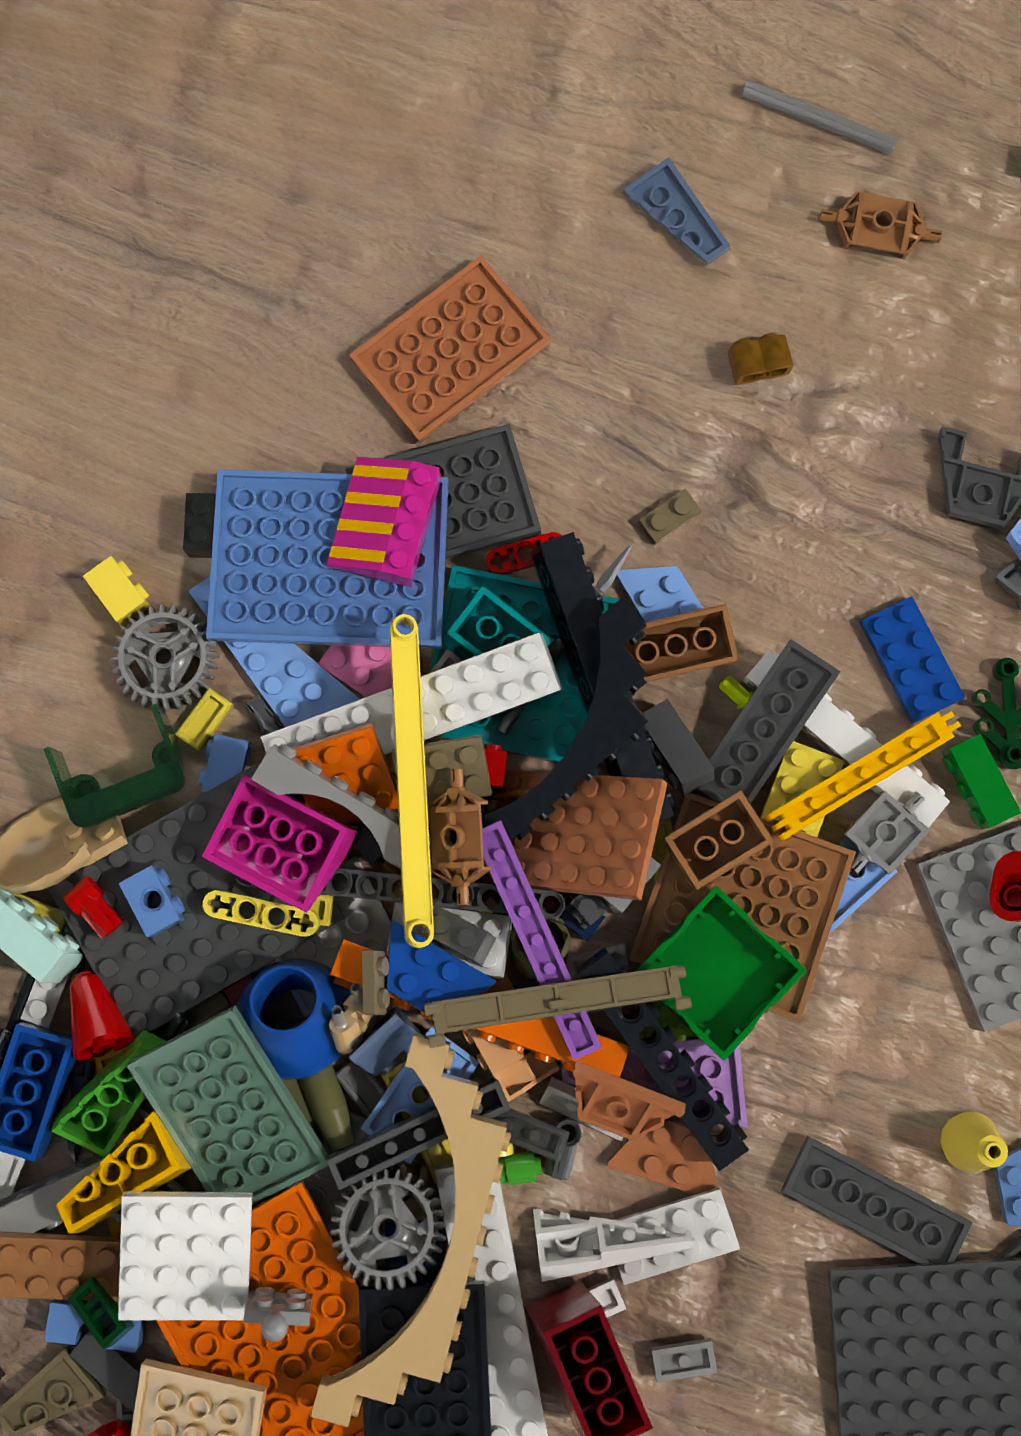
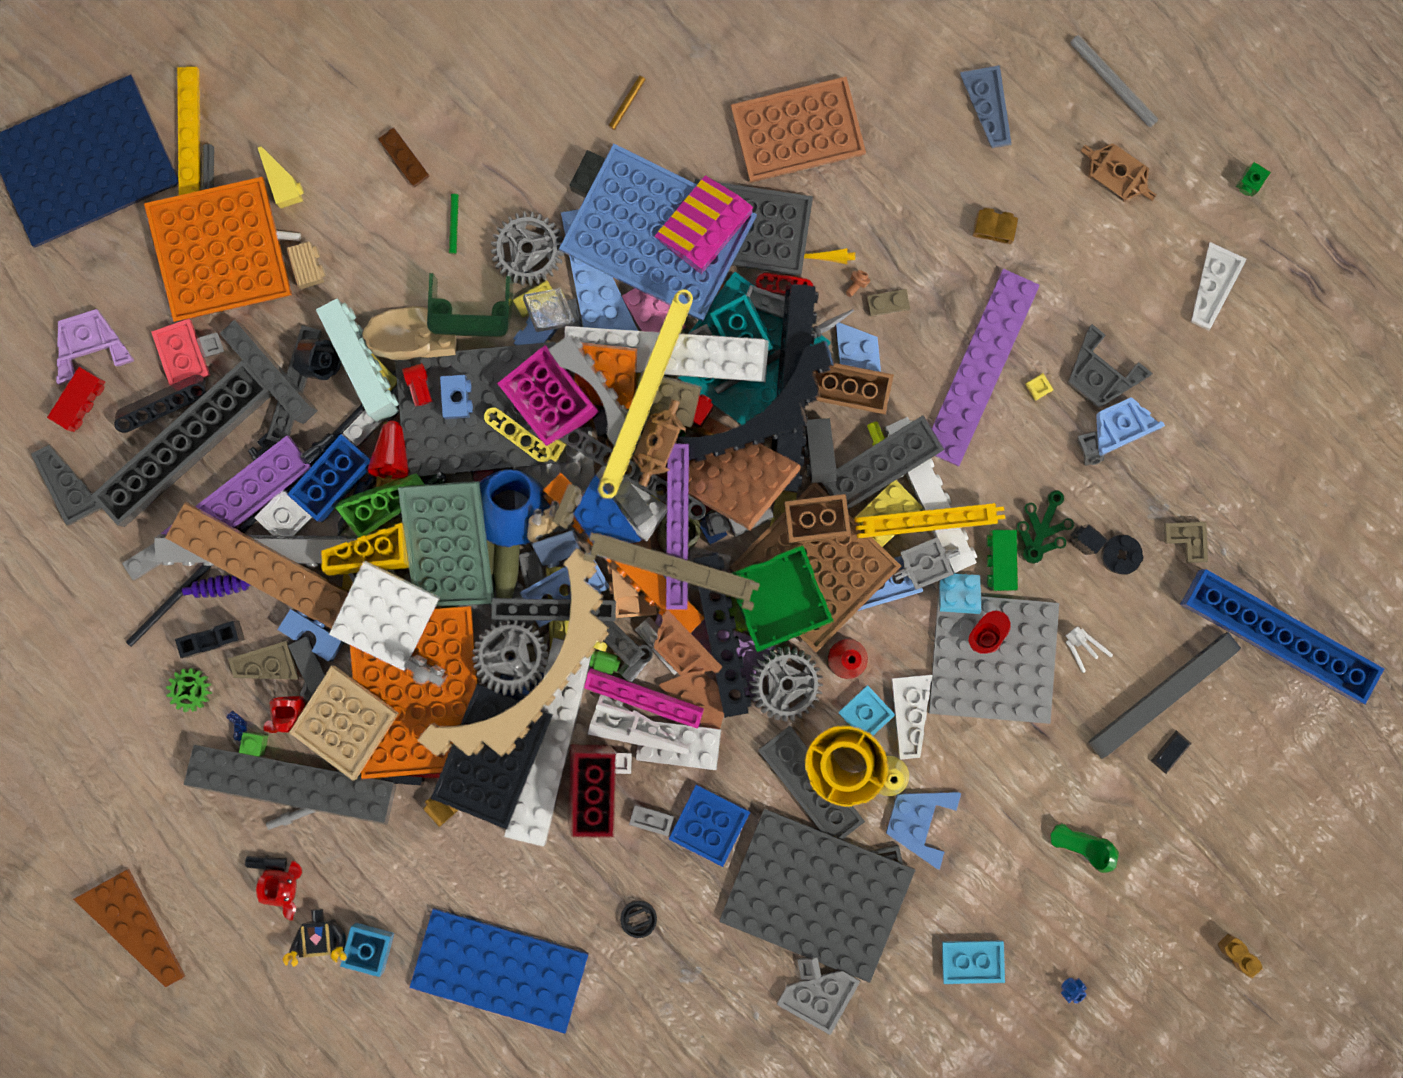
camera: 30 degrees right, 5 degrees up
(51, 669) = (453, 224): none -> green bar
(92, 1321) = (329, 642): dark green slope -> none
(116, 590) = (516, 192): light yellow brick -> none
(212, 412) = (627, 102): none -> pearl gold bar
(228, 725) = (548, 310): none -> clear plate
(514, 584) = (766, 301): none -> light grey tile
(576, 486) = (838, 256): none -> yellow piece
(596, 1194) = (644, 698): none -> dark pink plate
(619, 502) = (860, 280): none -> nougat plate
(759, 1071) = (777, 671): none -> light grey gear
(766, 1329) = (709, 825): none -> blue plate
(828, 539) = (982, 364): none -> medium lavender plate
(840, 1008) = (839, 656): none -> red cone
(902, 1071) = (866, 711): none -> medium azure plate
(912, 660) = (998, 464): blue plate -> none
(914, 536) = (1039, 386): none -> light yellow tile
(927, 1188) = (835, 783): none -> yellow cone
(949, 852) = (960, 594): none -> medium azure plate
(955, 1035) = (910, 709): none -> white wing

